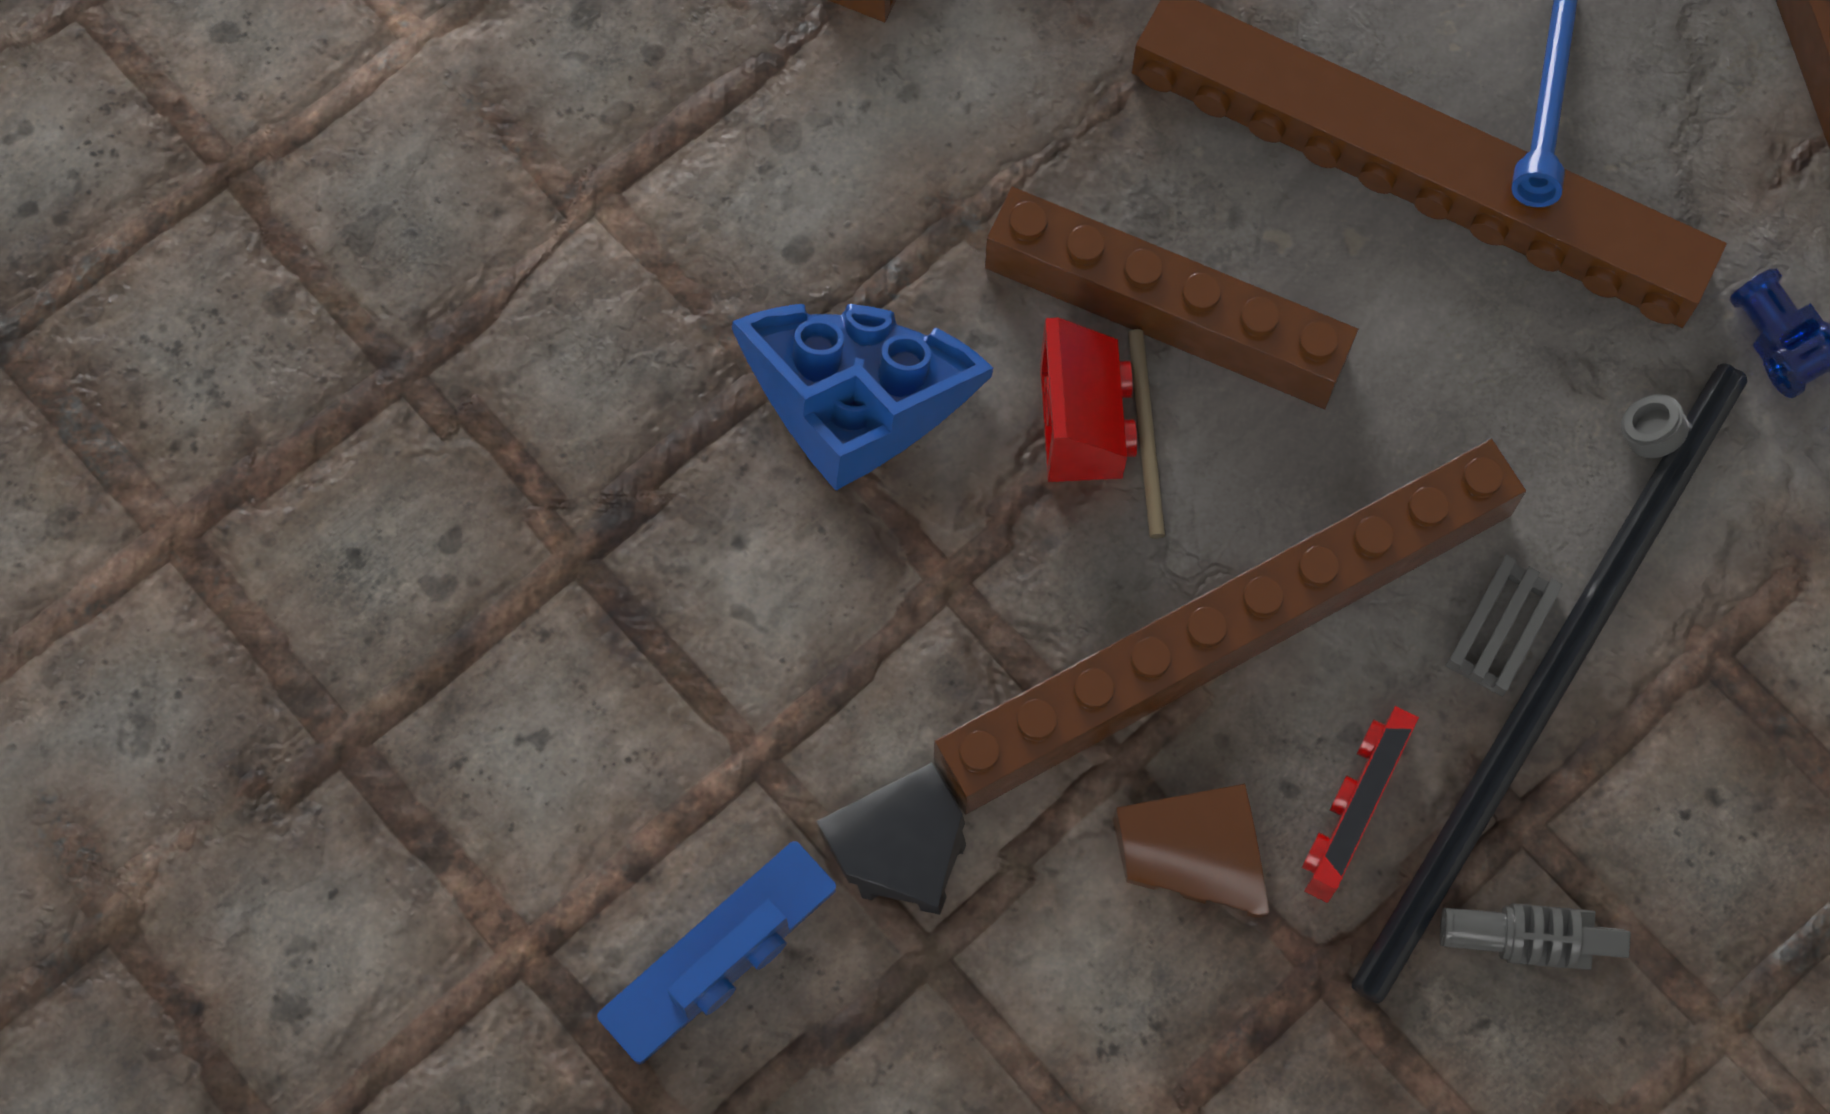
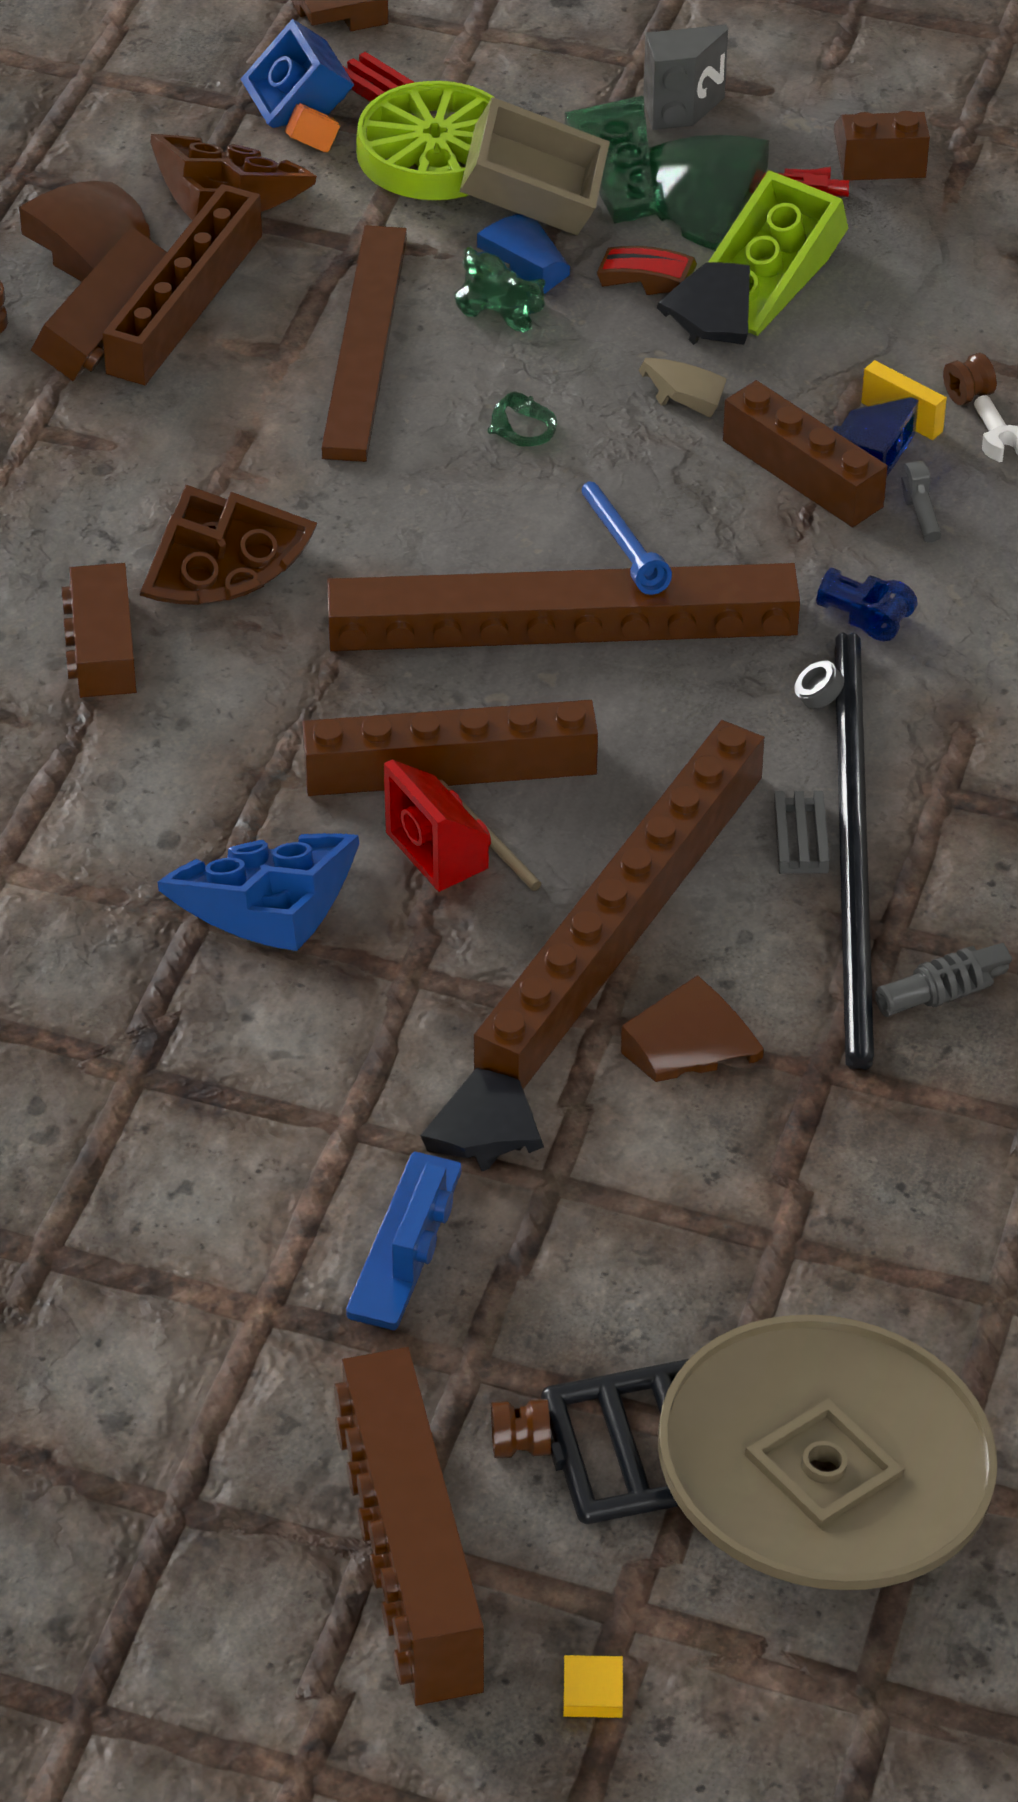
camera: 30 degrees left, 25 degrees down
(1357, 802) = (778, 960): plate -> none

